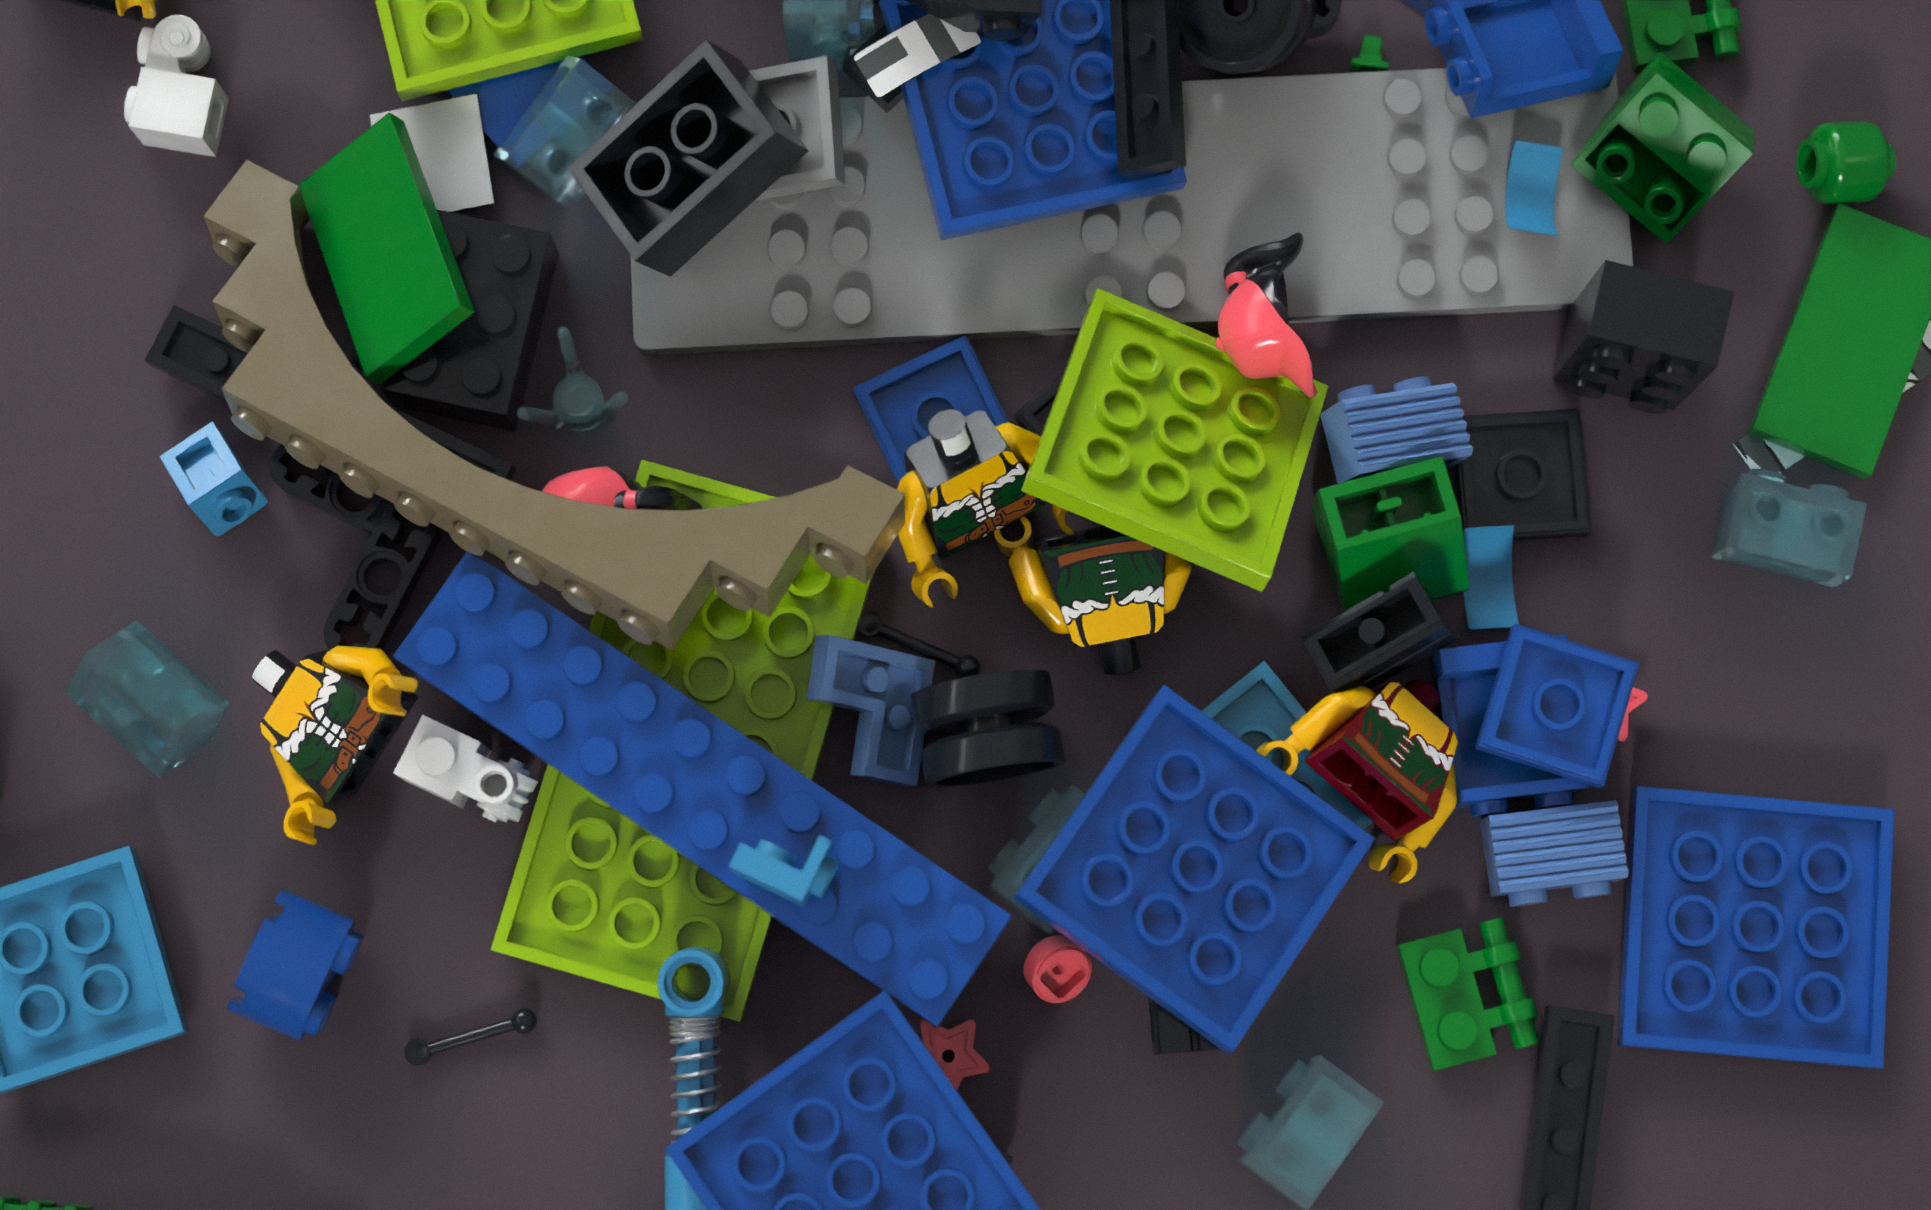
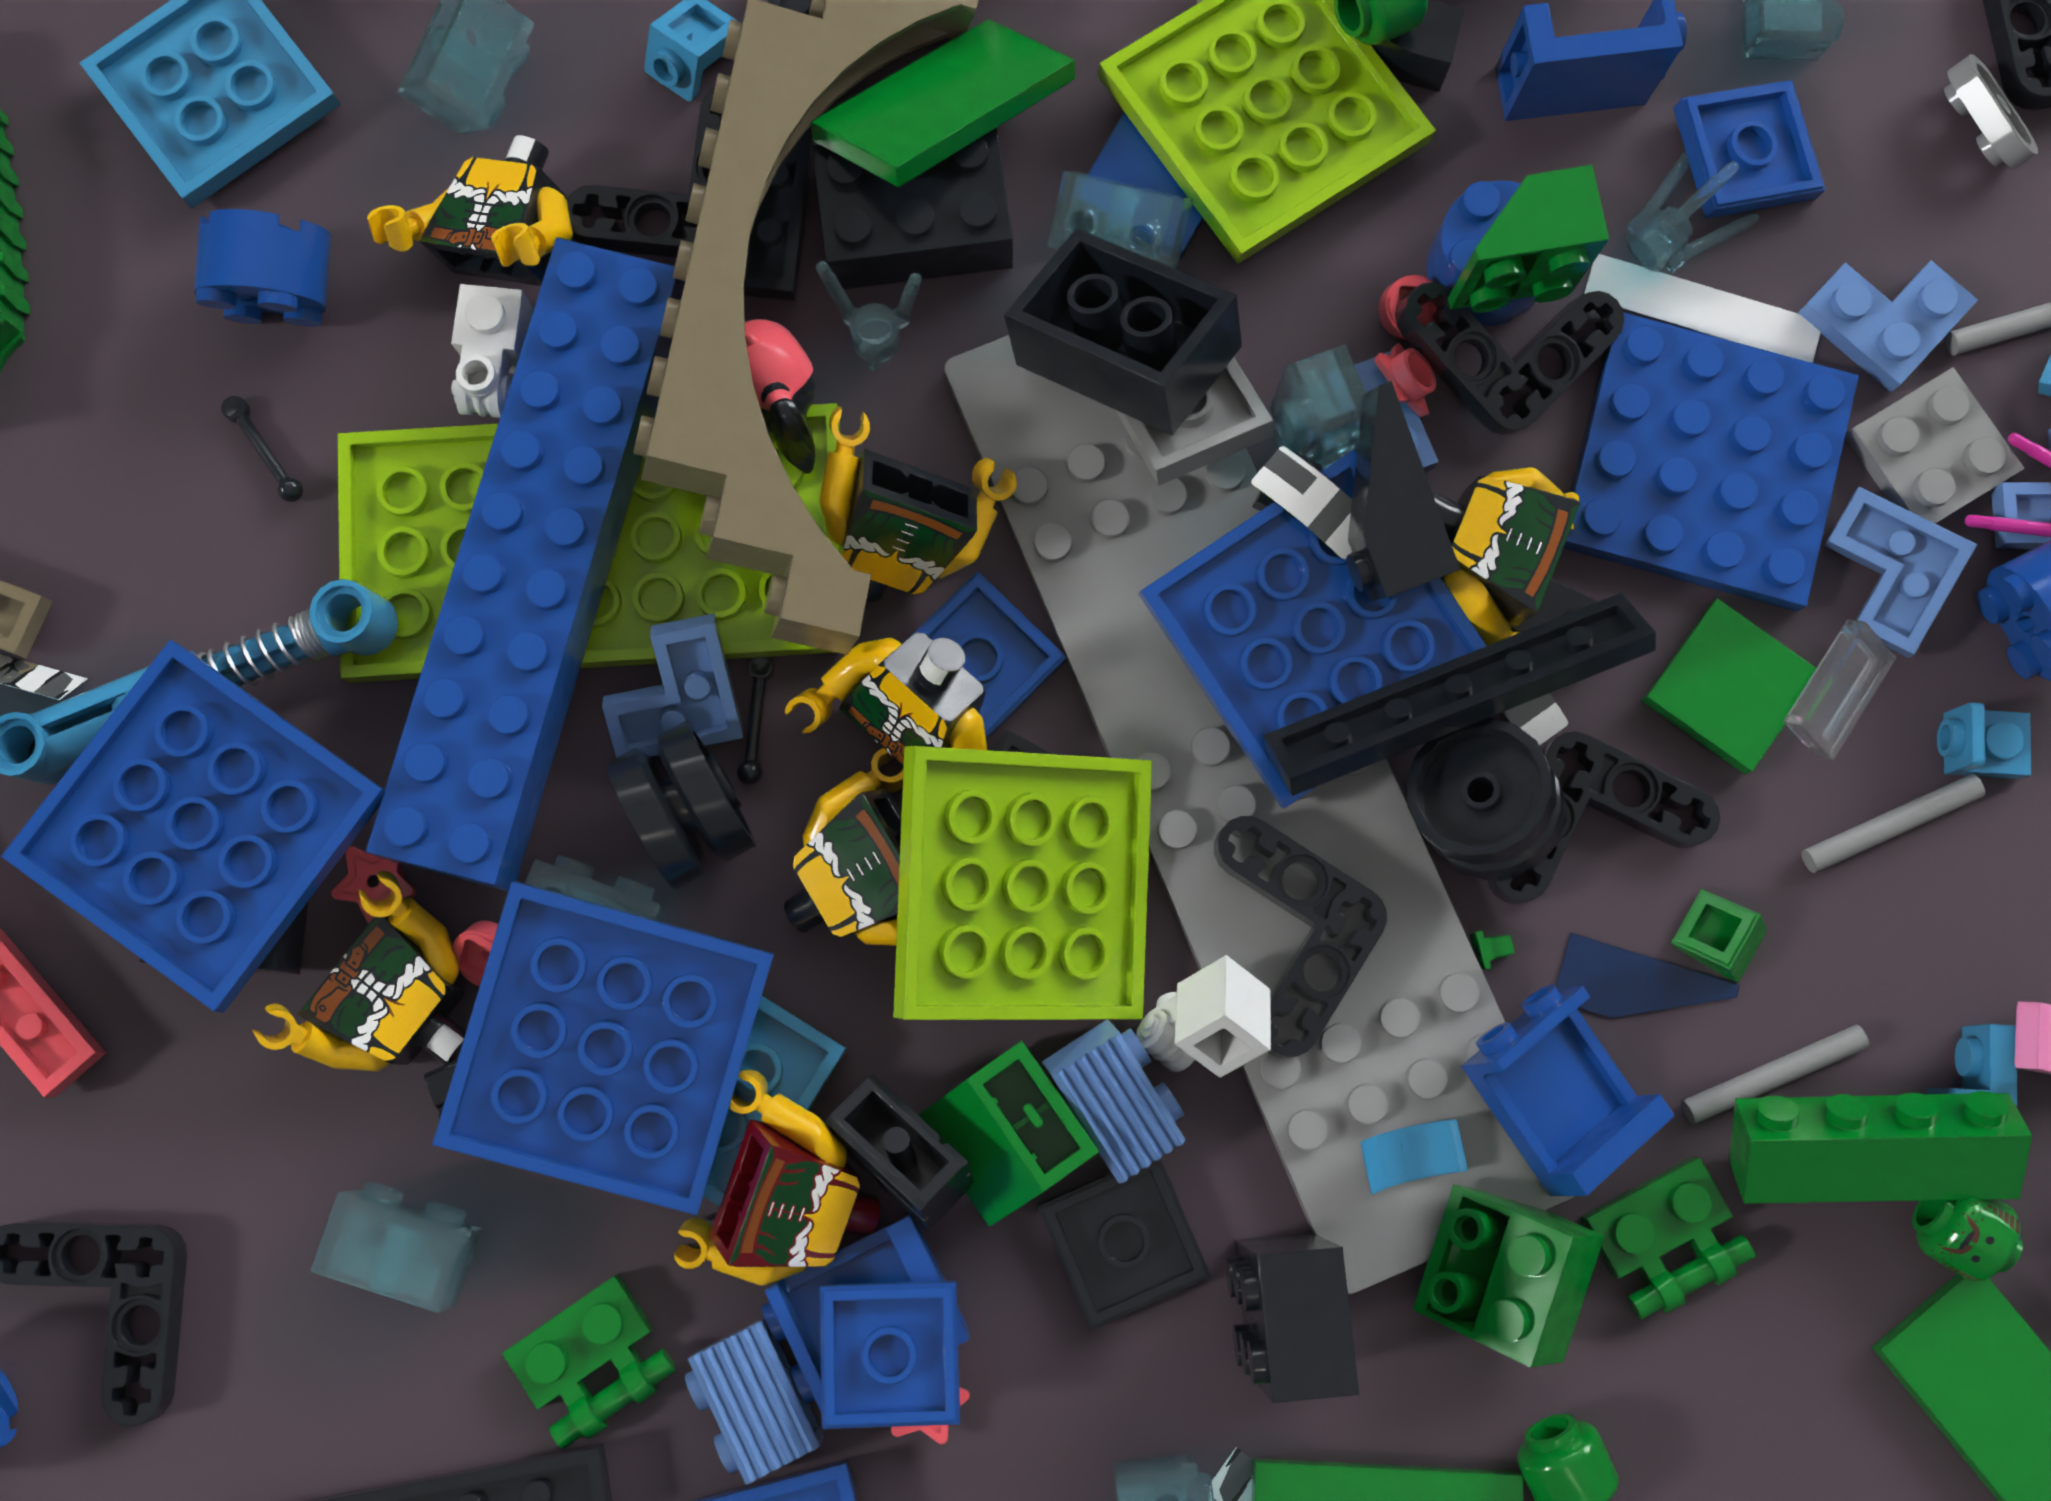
camera: 70 degrees right, 0 degrees up
(449, 150) = (1062, 130): white sticker -> none
(773, 870) = (448, 642): dark azure bracket -> none
(788, 431) = (902, 519): none -> torso
(1065, 1073) = (383, 994): none -> torso
(1256, 316) = (1177, 923): coral hair -> none
(1295, 188) = (1318, 912): none -> black beam
(1352, 315) = (1213, 1018): none -> white brick
(1489, 568) = (1008, 1244): dark azure sticker -> none

